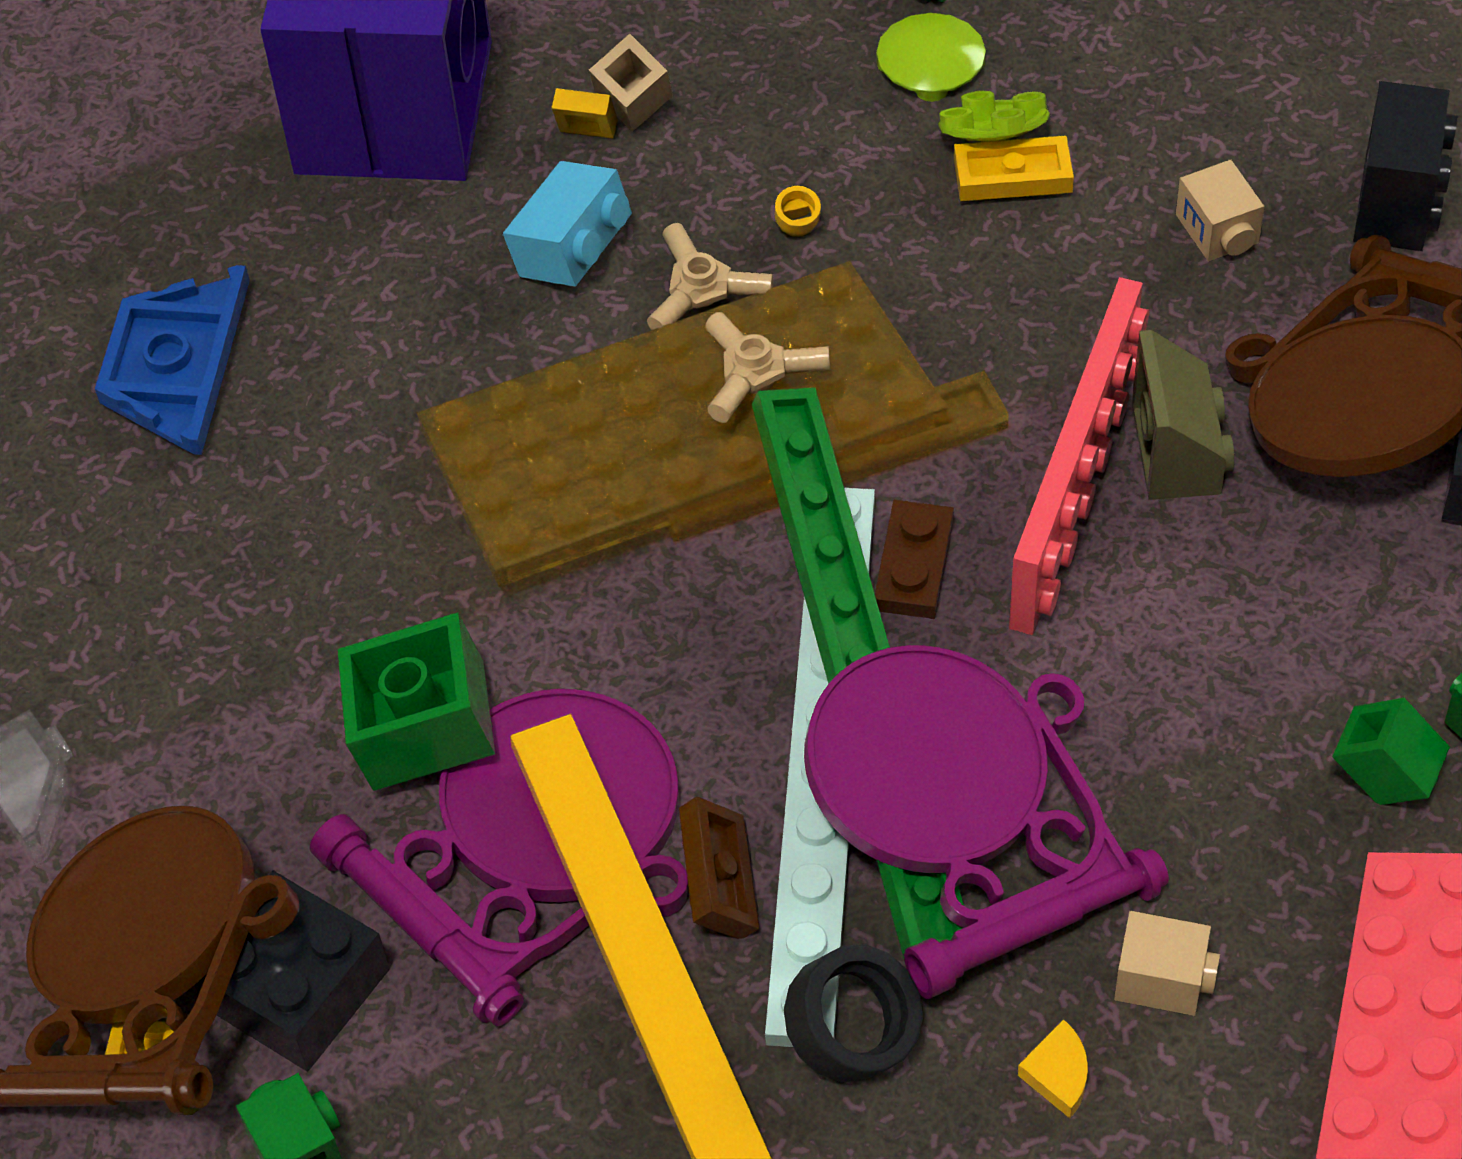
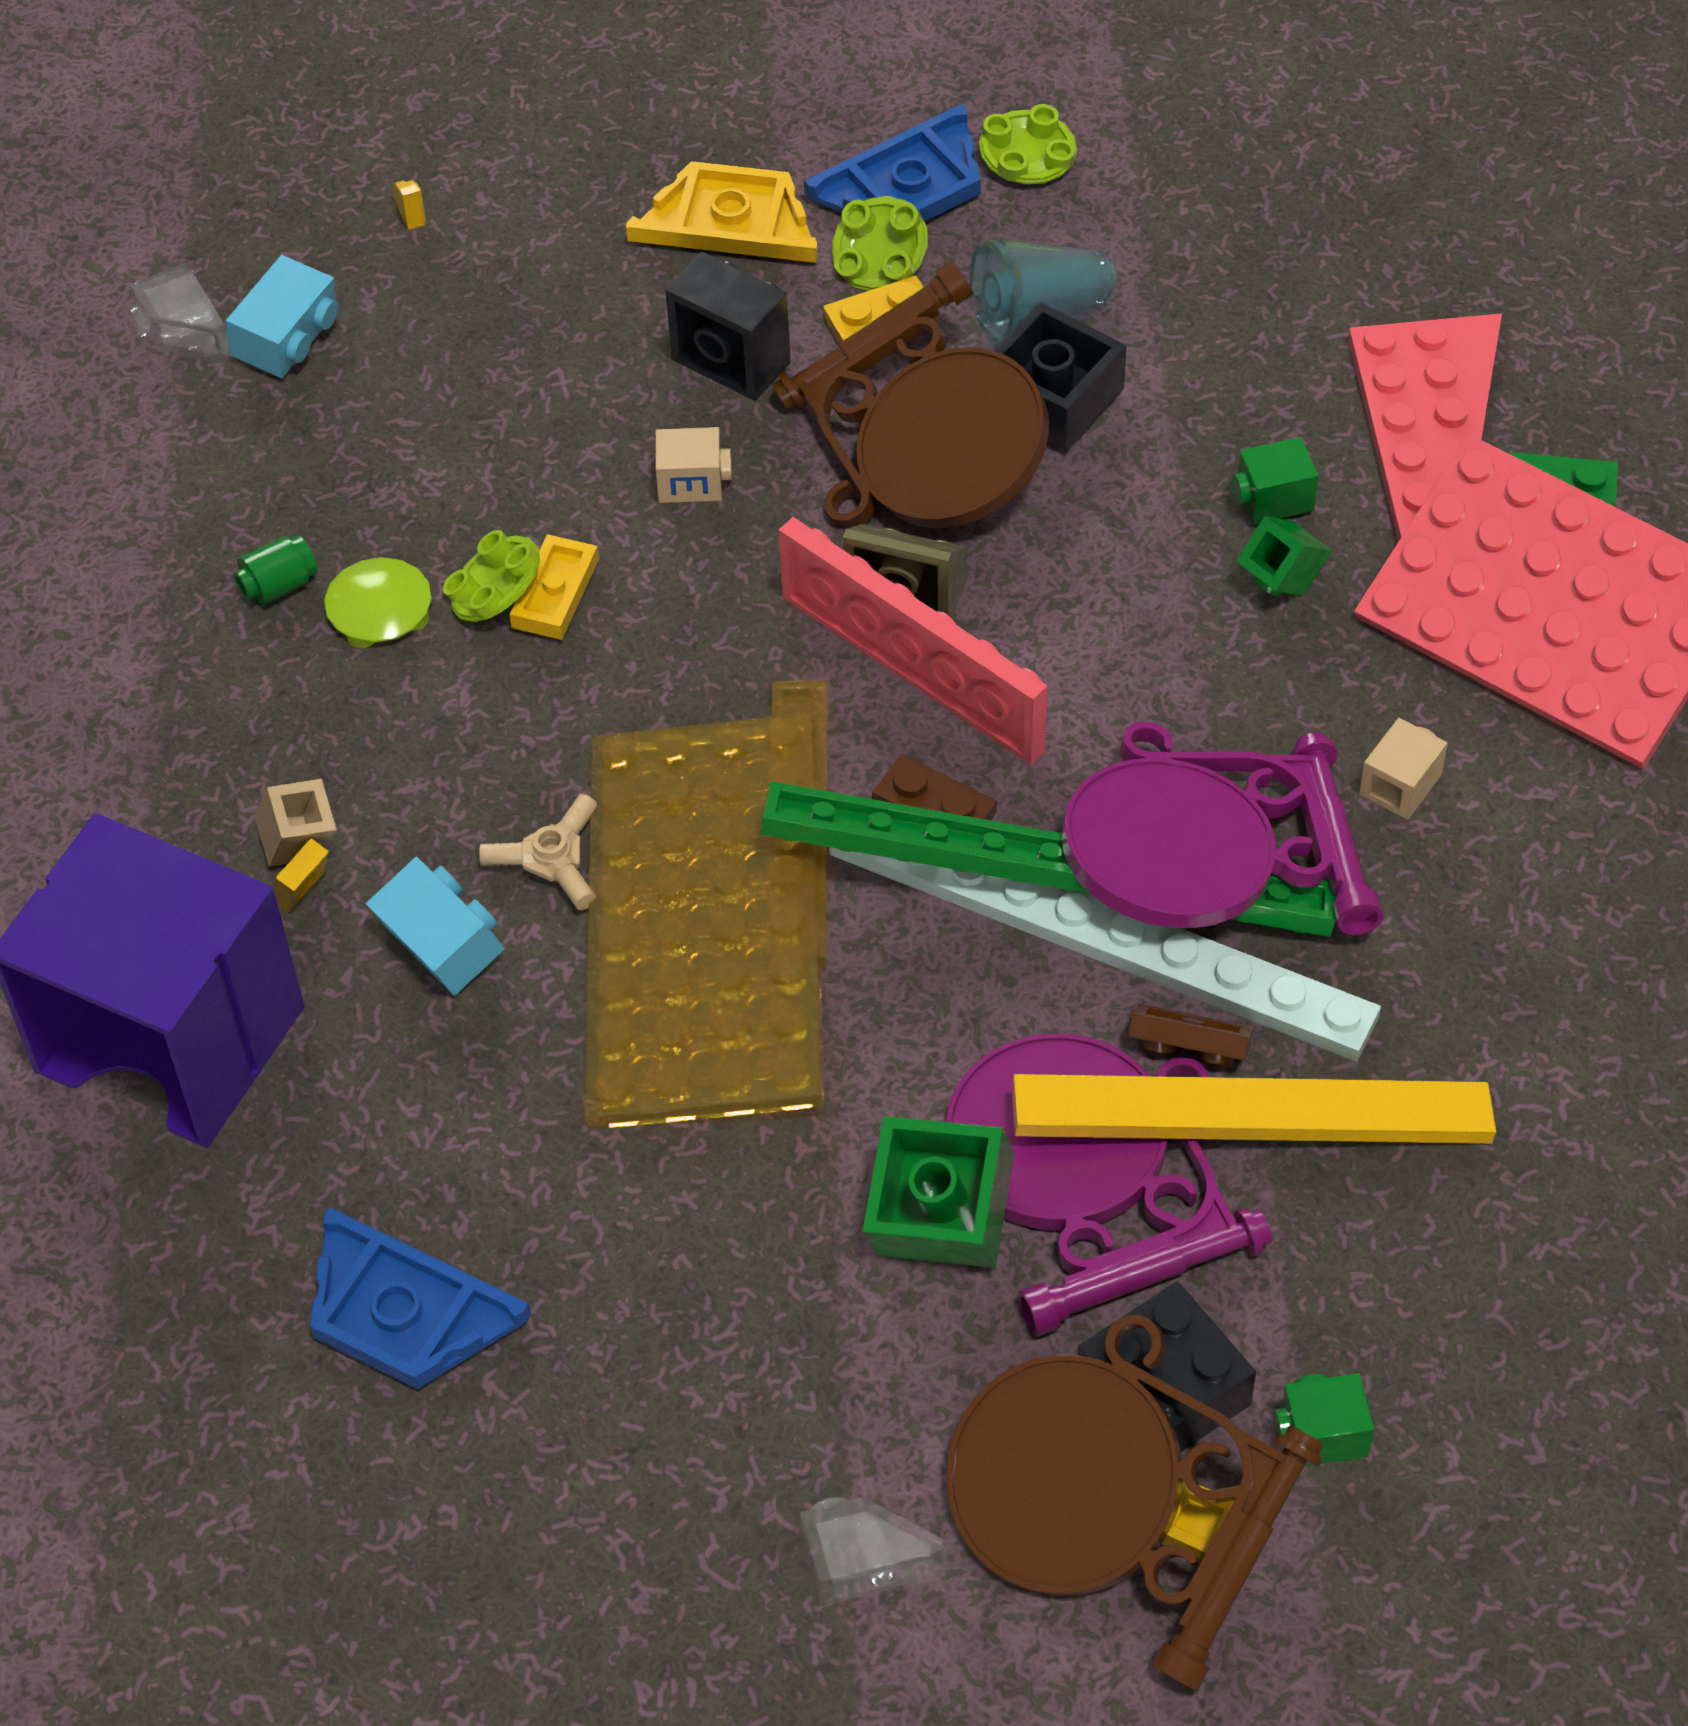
camera: 70 degrees left, 0 degrees up
(755, 364) = (705, 824): tan piece -> none
(796, 203) = (517, 741): yellow hinge -> none
(895, 993) = (1352, 986): black tyre -> none
(1058, 1069) = (1460, 871): yellow tile -> none

